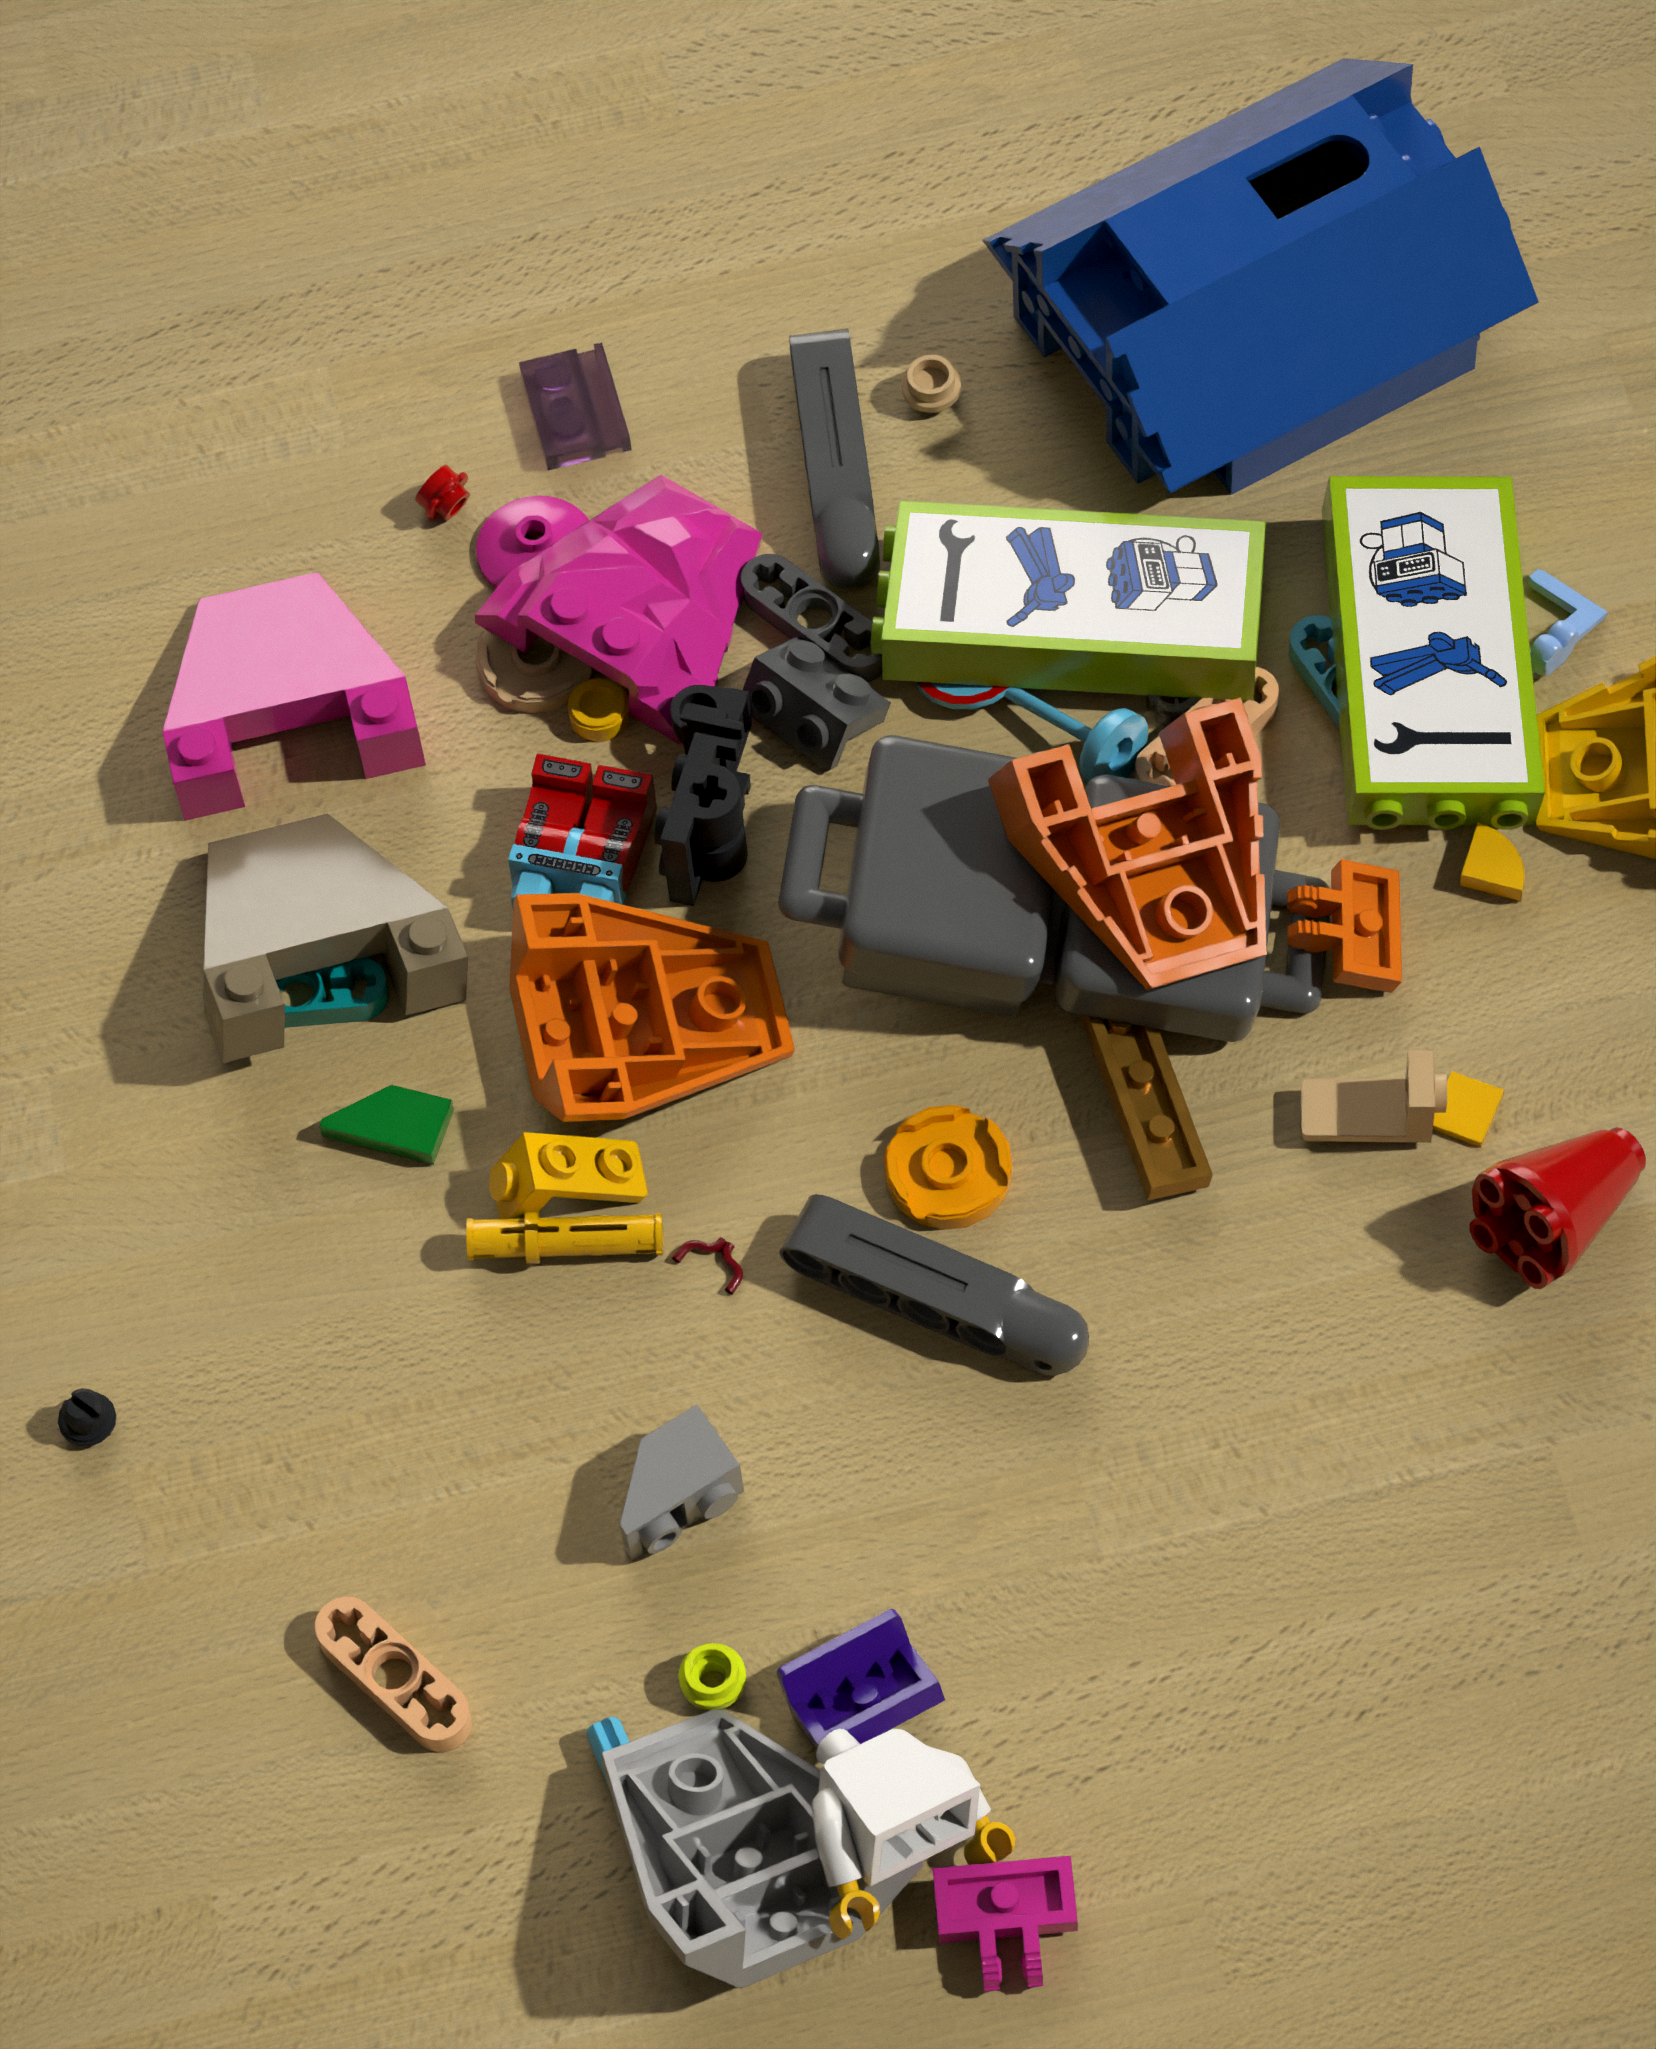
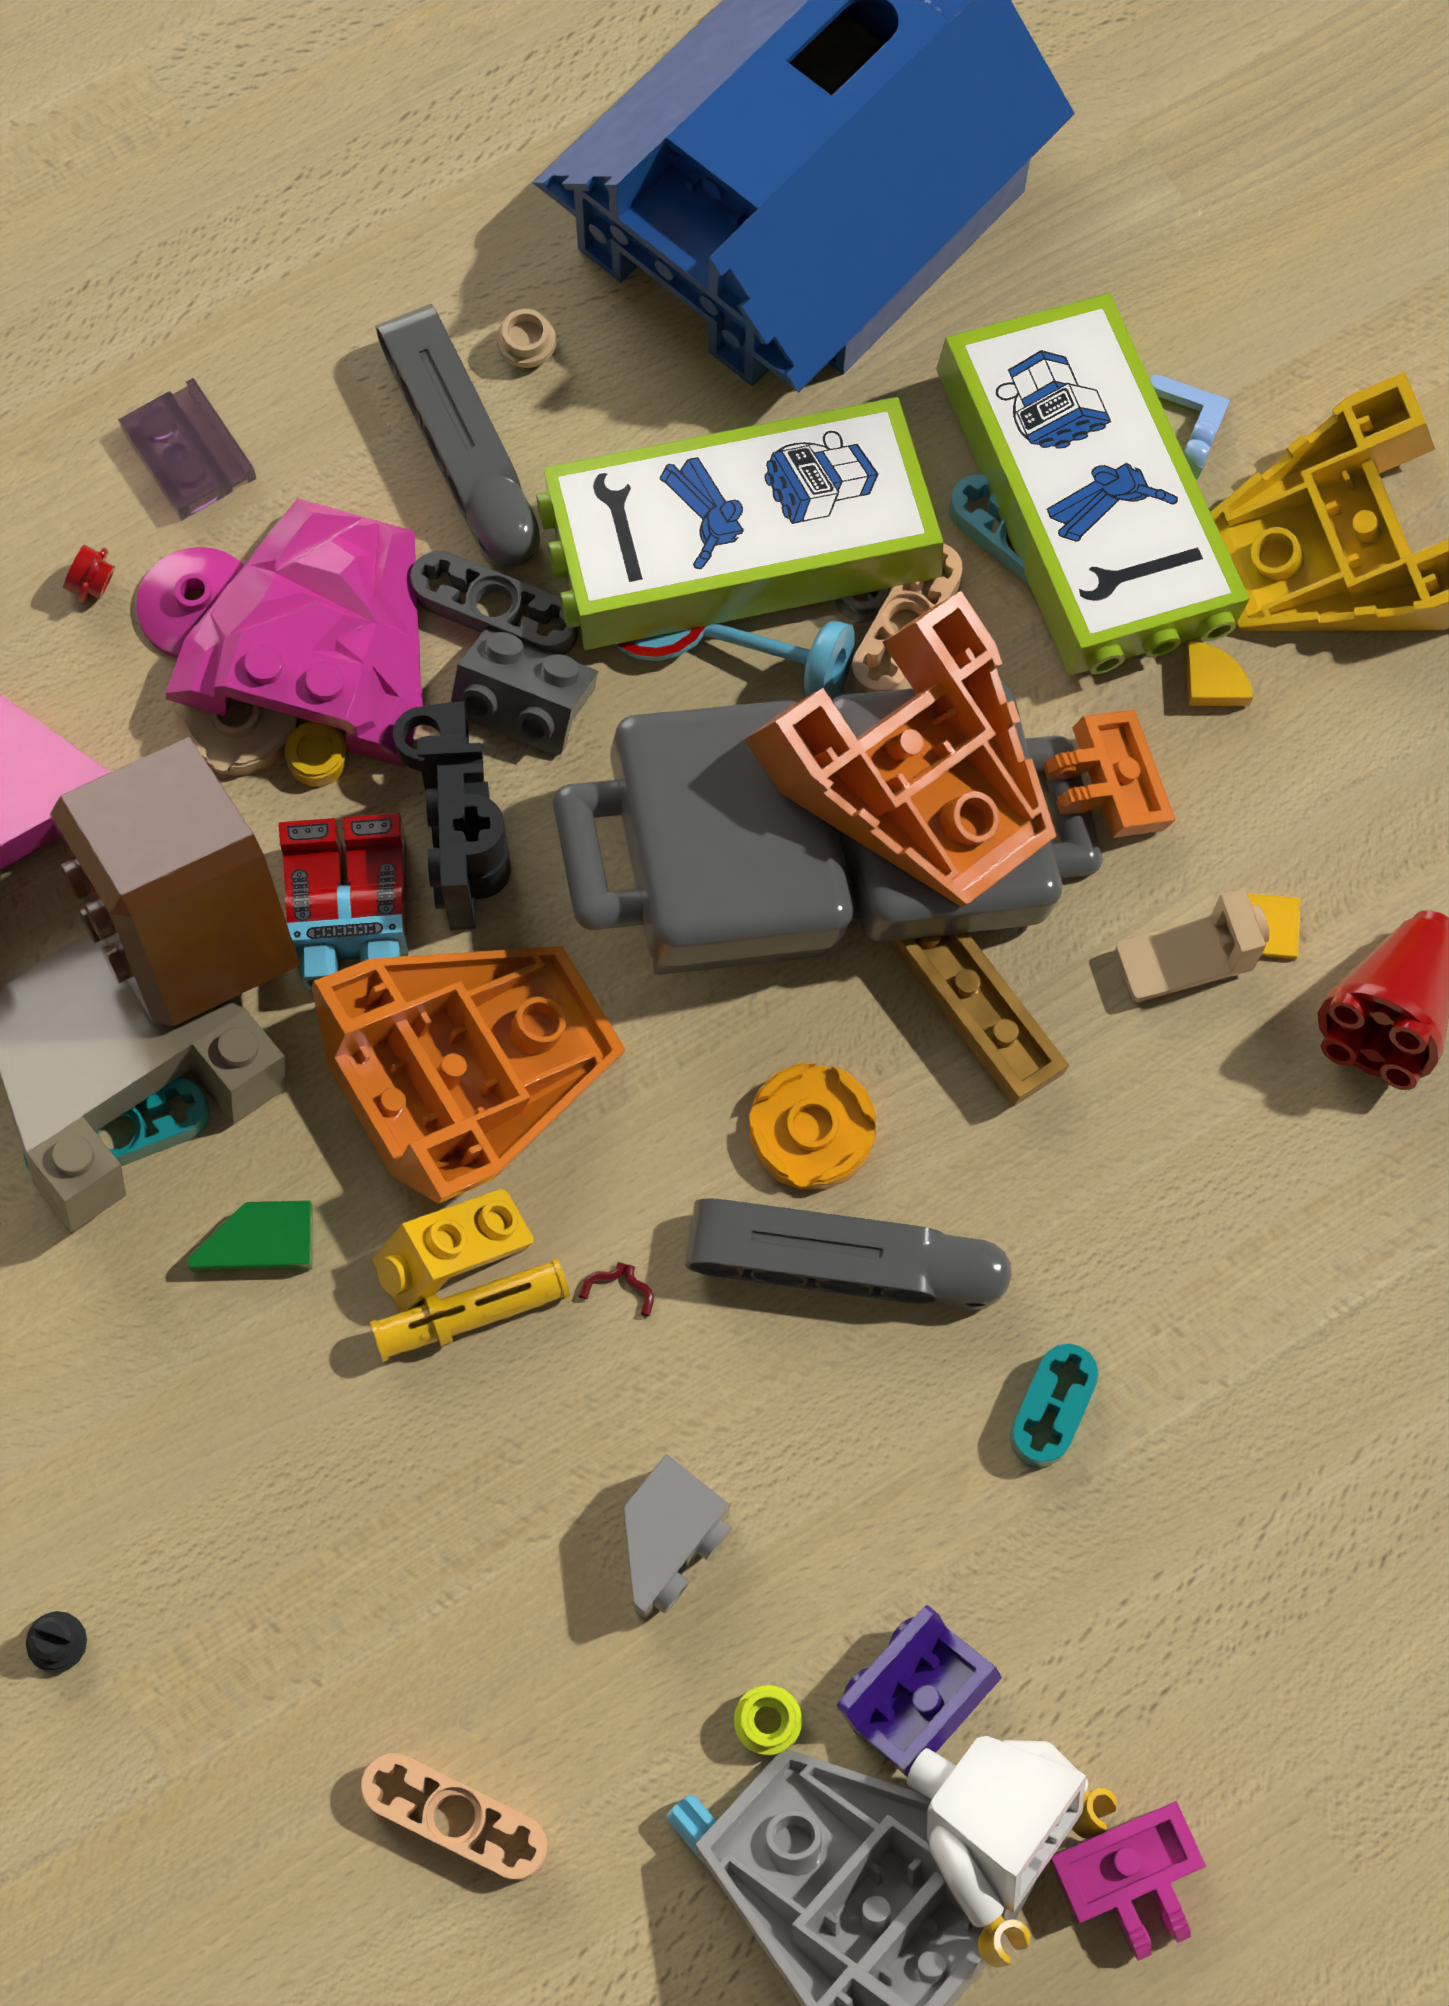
camera: 25 degrees left, 10 degrees up
(415, 773) = (173, 884): none -> reddish brown plate
(1098, 1489) = (1068, 1412): none -> teal beam

